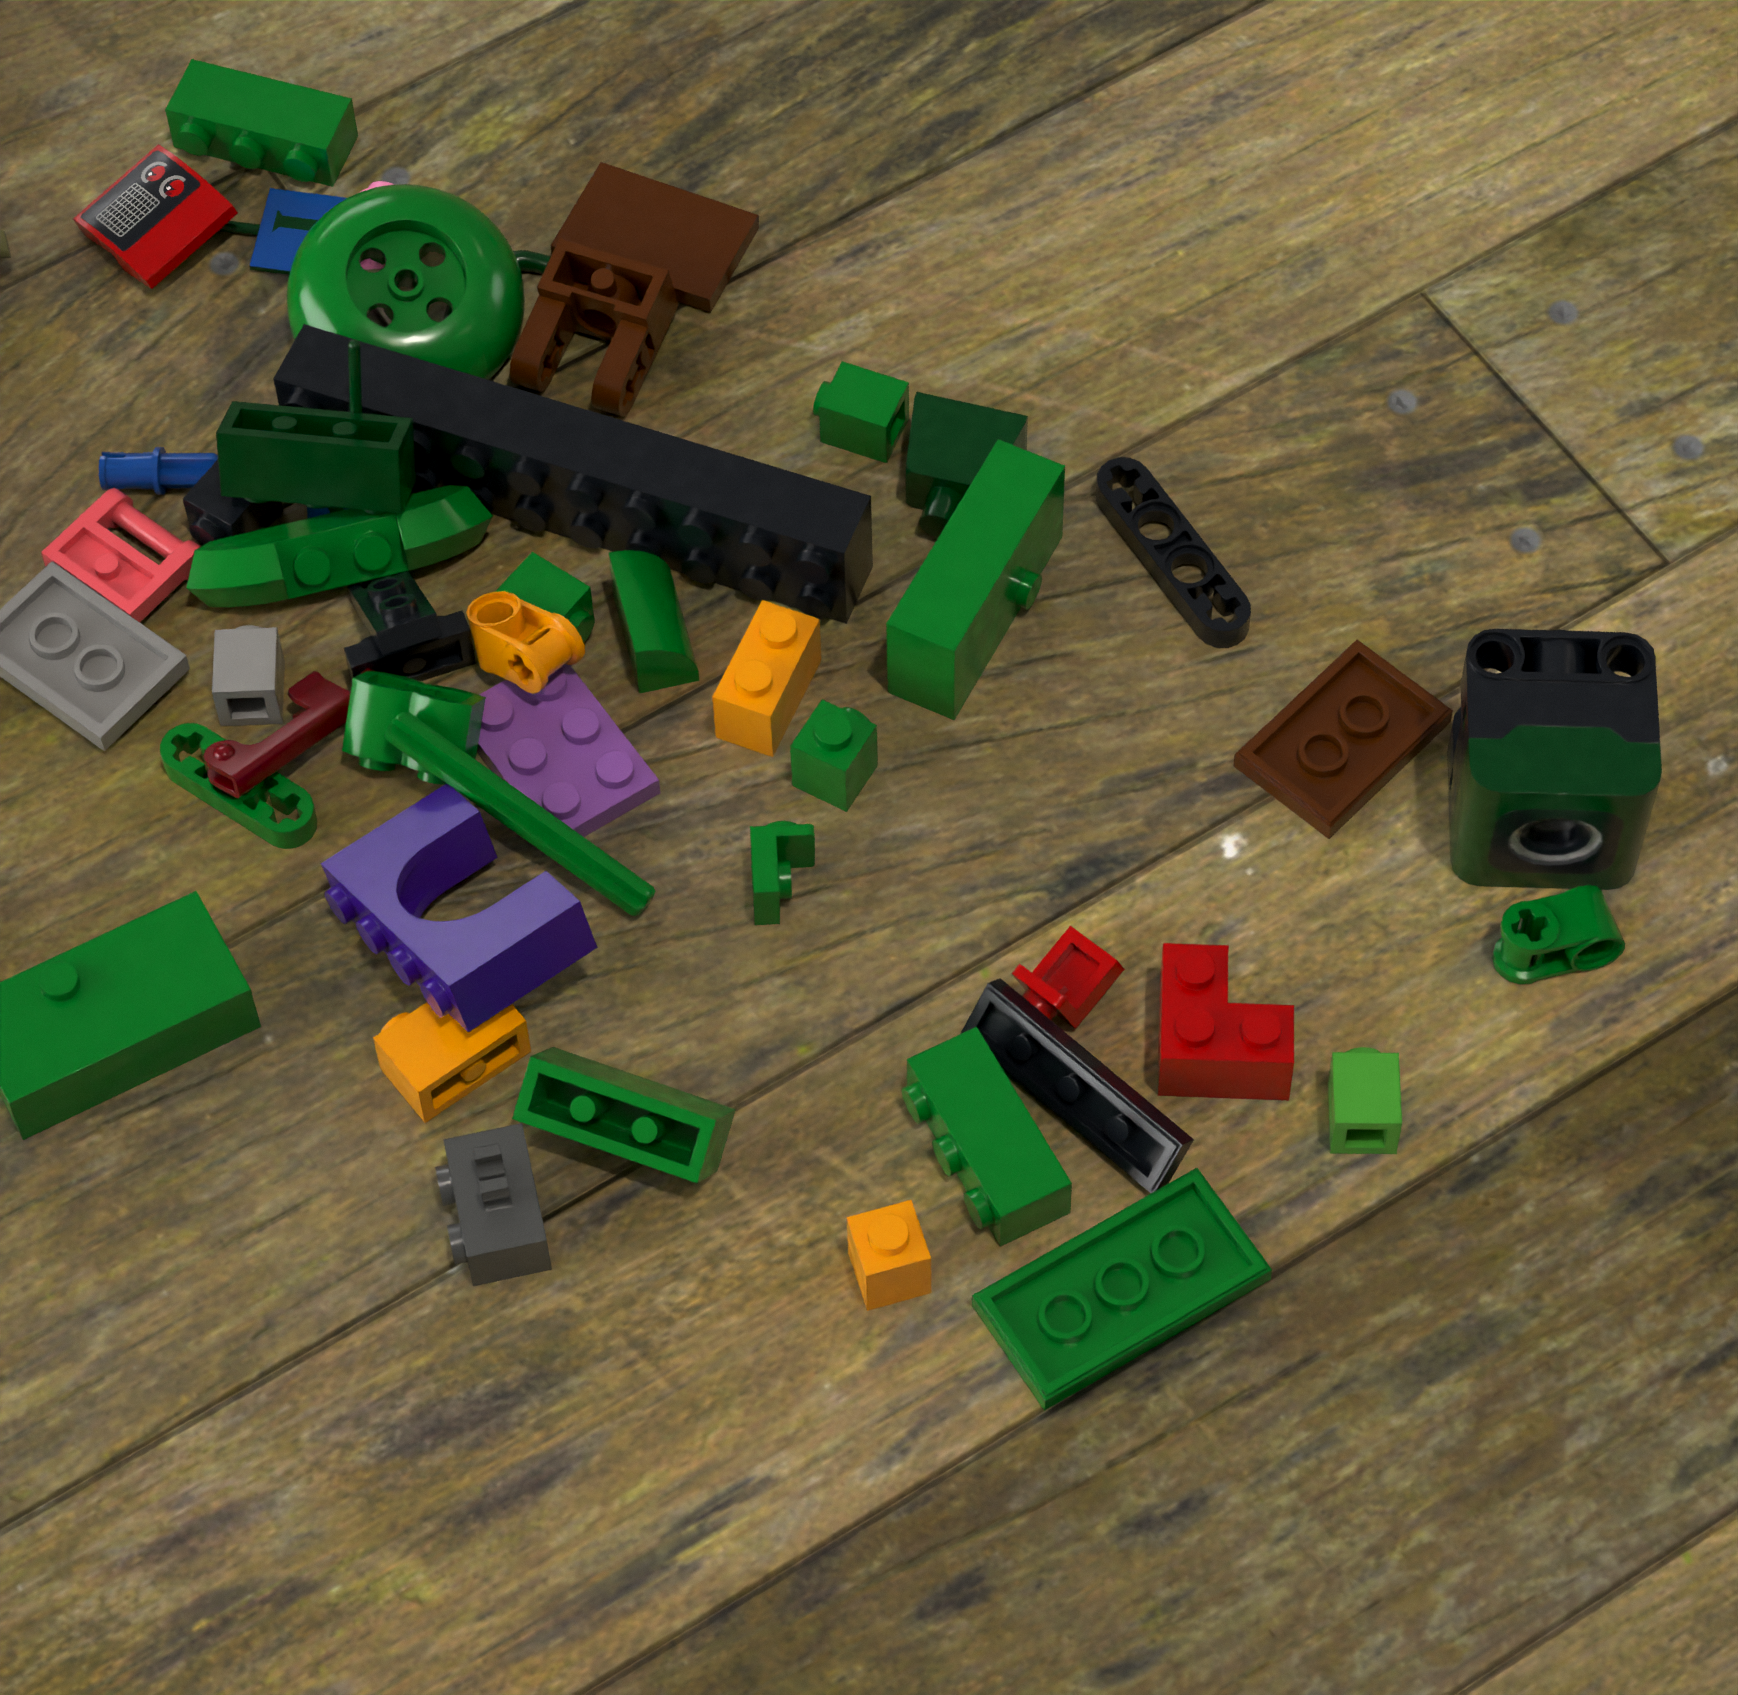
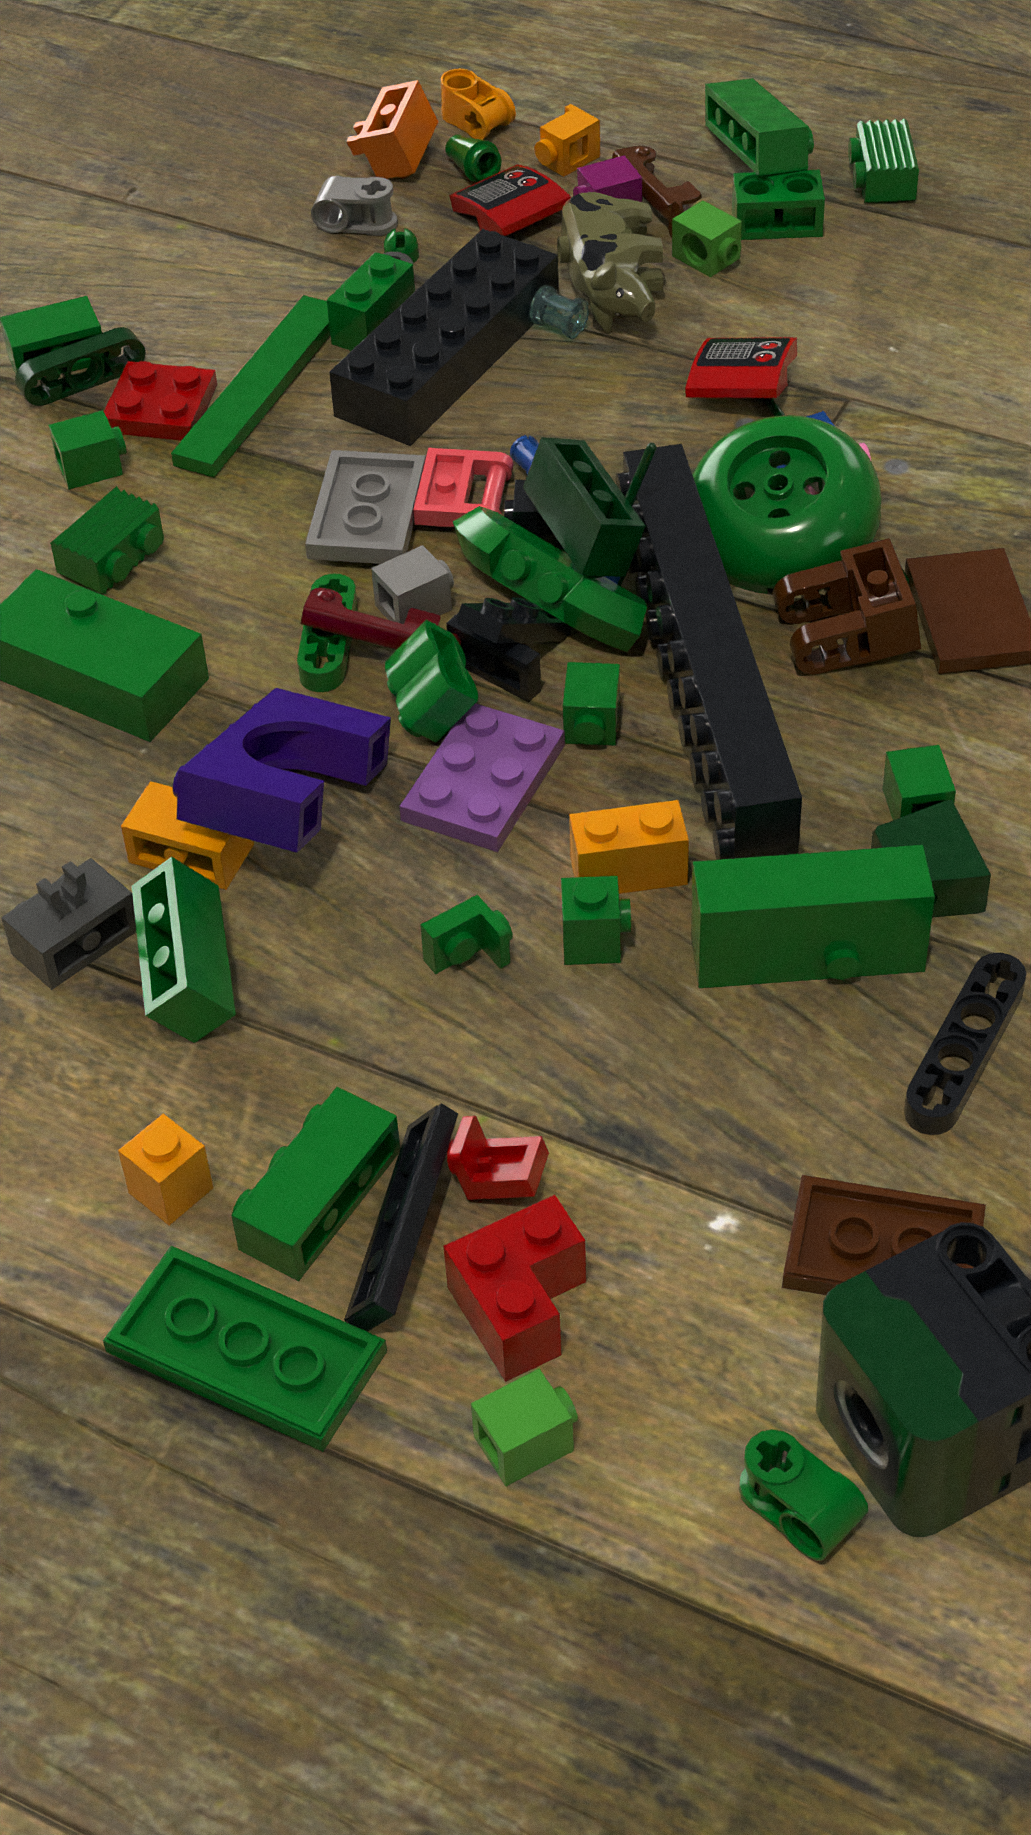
camera: 60 degrees right, 10 degrees down
(262, 123) = (865, 377): green brick -> none
(520, 813) = (396, 771): green axle -> none
(521, 639) = (537, 691): light orange piece -> none
(651, 621) = (629, 760): green brick -> none

